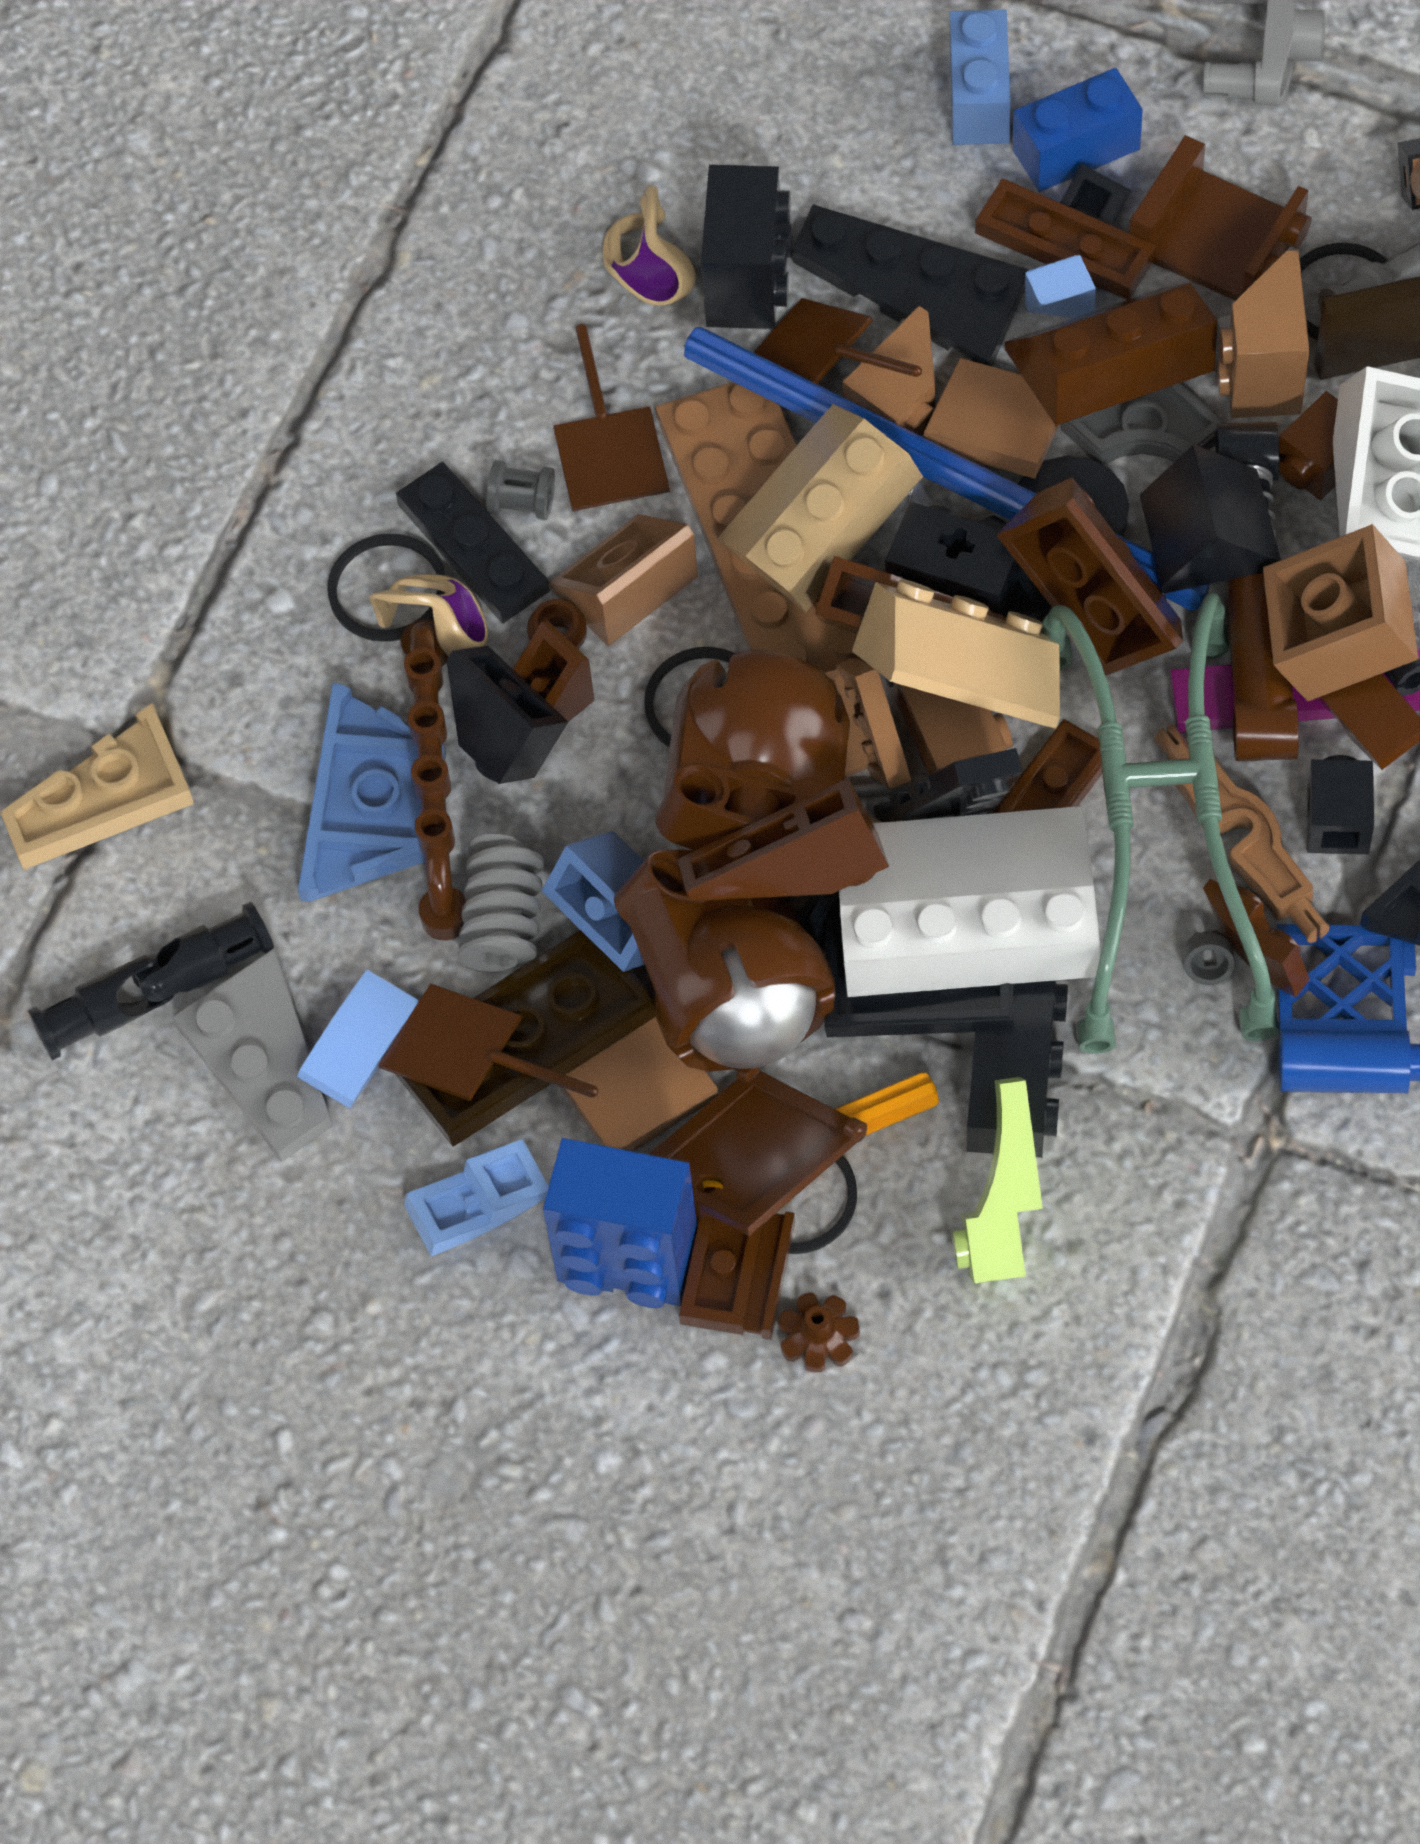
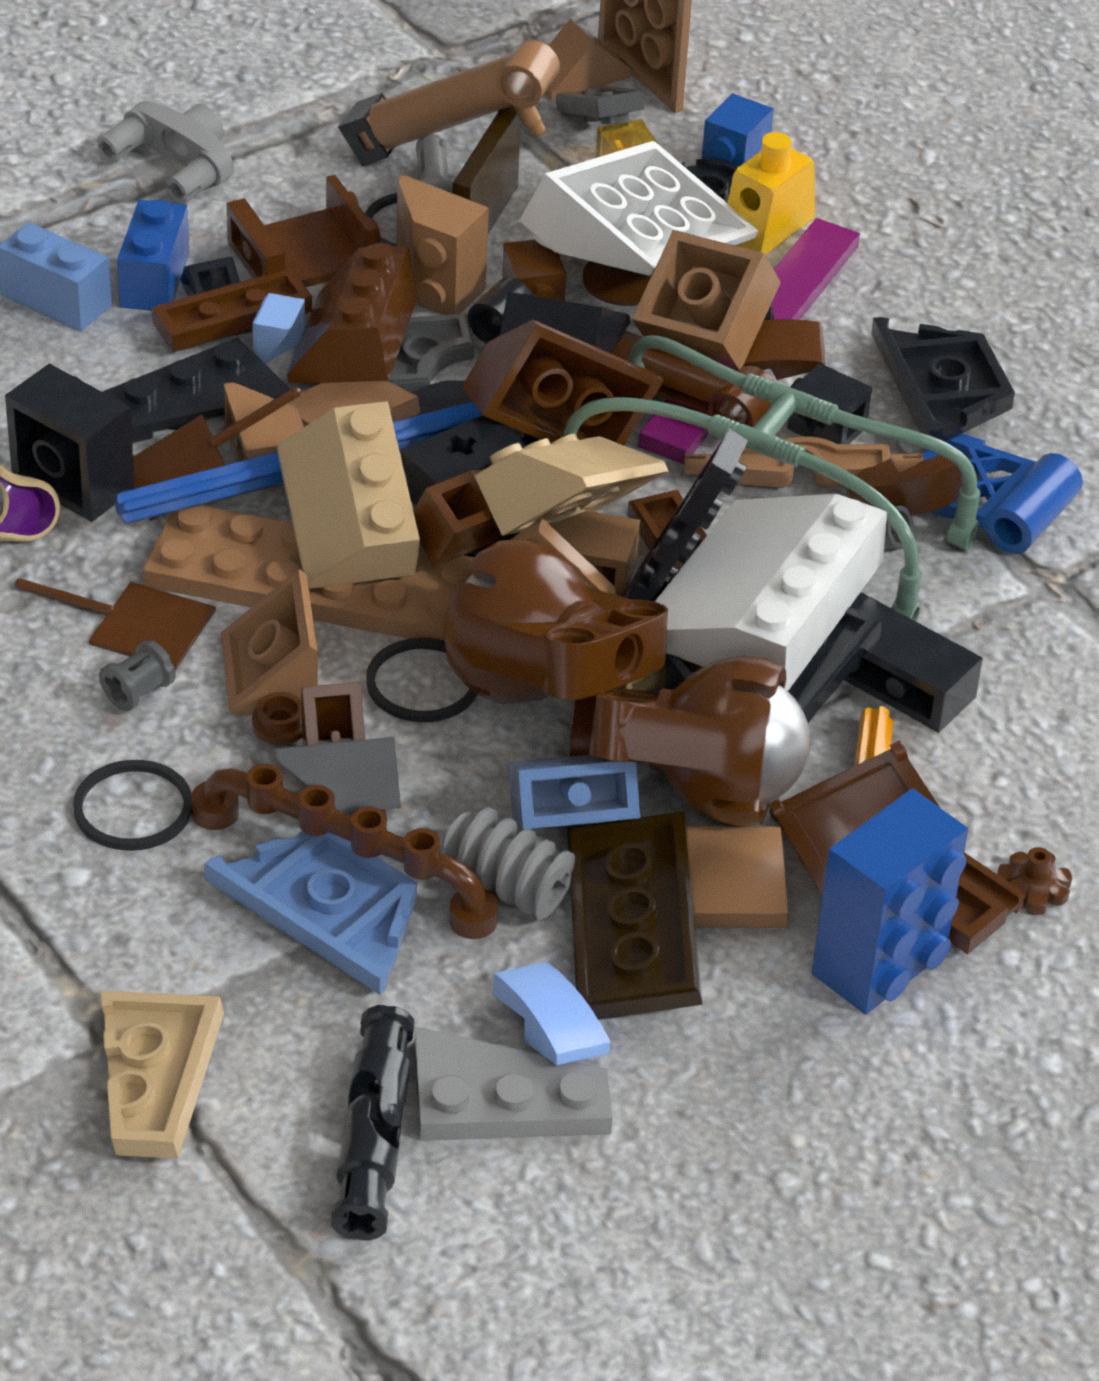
camera: 65 degrees left, 20 degrees down
(456, 613) = (212, 755): tan piece -> none
(456, 1041) = (619, 949): reddish brown piece -> none
(472, 542) = (147, 732): black plate -> none
(479, 1199) = (756, 1019): light blue slope -> none
(793, 852) = (674, 614): reddish brown slope -> none
(991, 1234) = (1015, 691): yellowish green slope -> none

